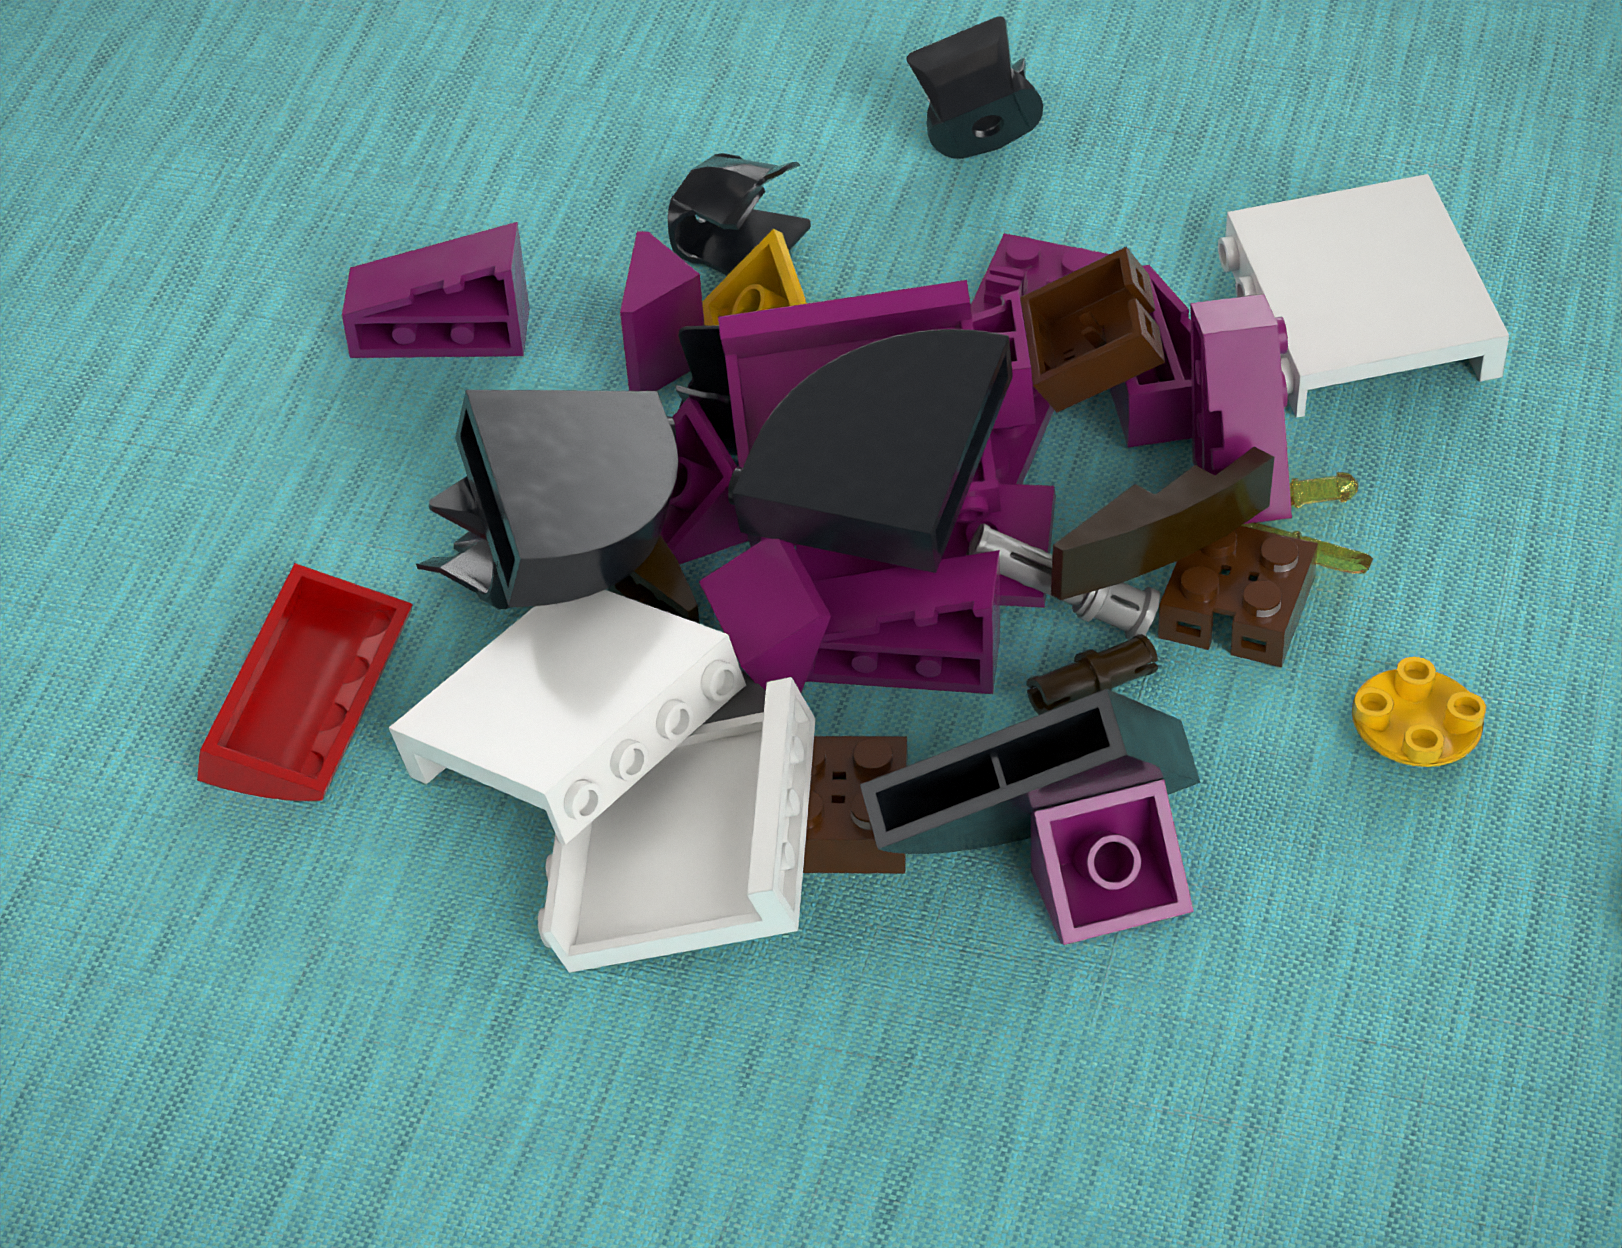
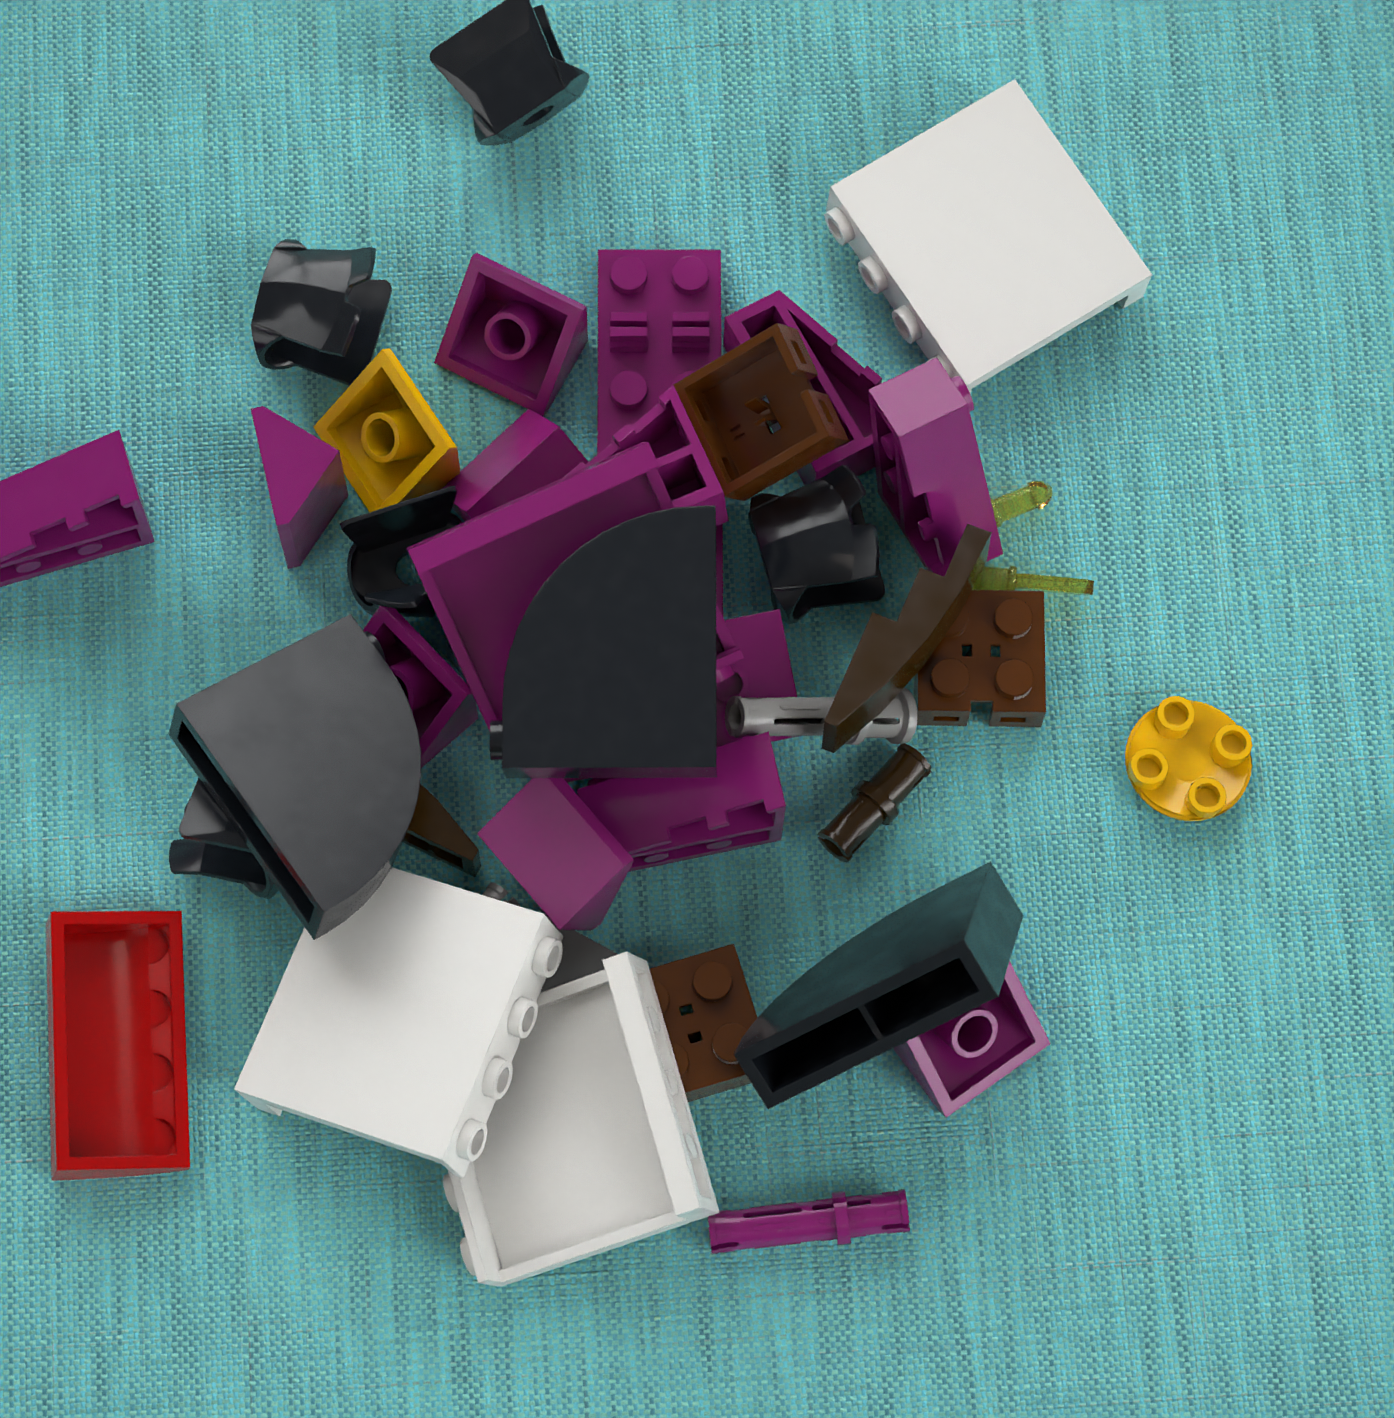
camera: 25 degrees left, 25 degrees up
(890, 986) = (810, 1221): none -> magenta pin
(898, 250) = (513, 335): none -> magenta slope
(1106, 453) = (817, 545): none -> black piece

